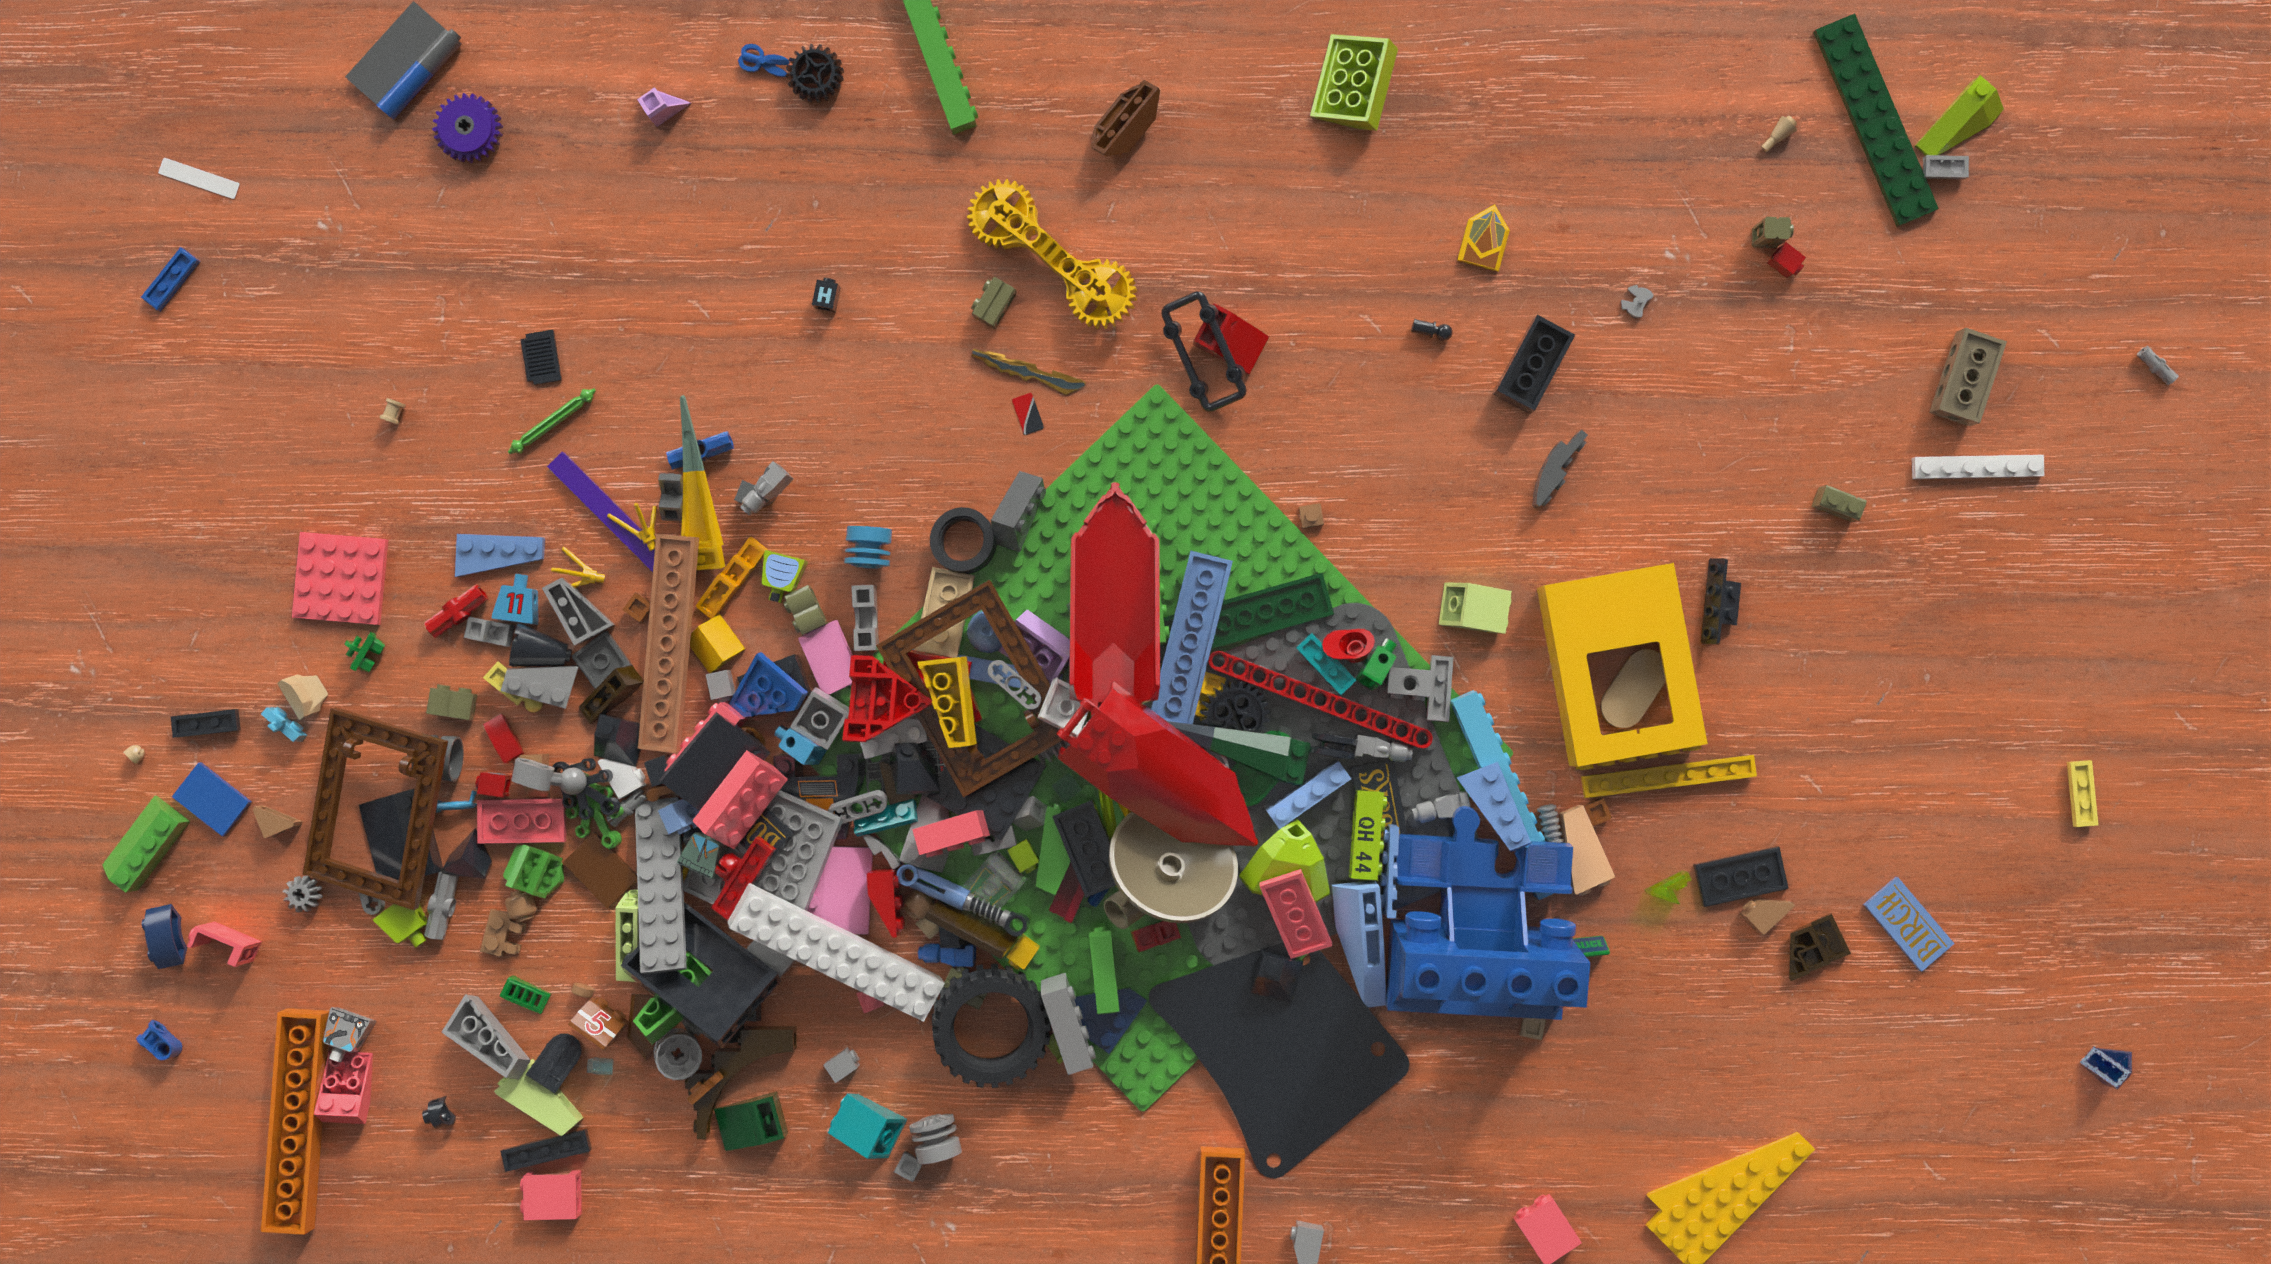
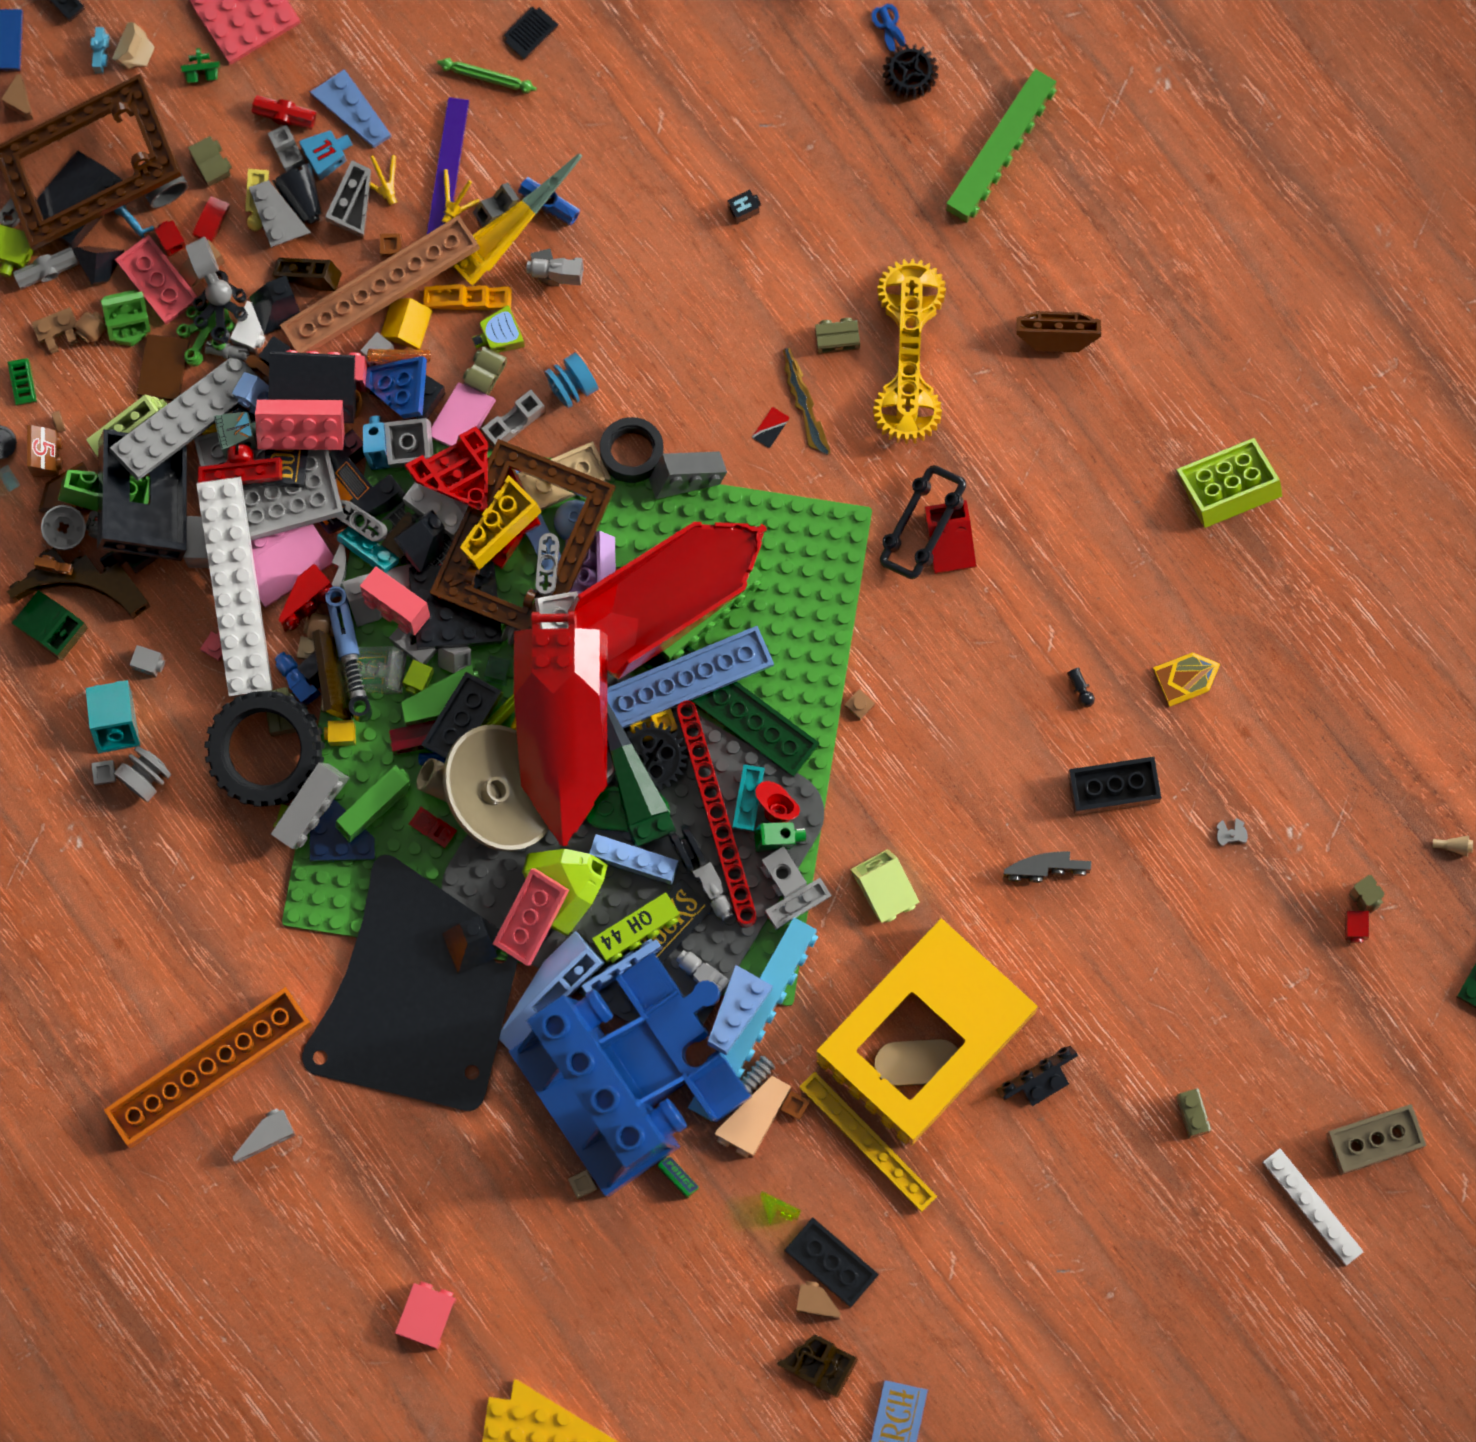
camera: 55 degrees right, 10 degrees down
(600, 658) = (329, 244): dark grey plate -> none
(726, 690) = (376, 355): none -> clear orange pin

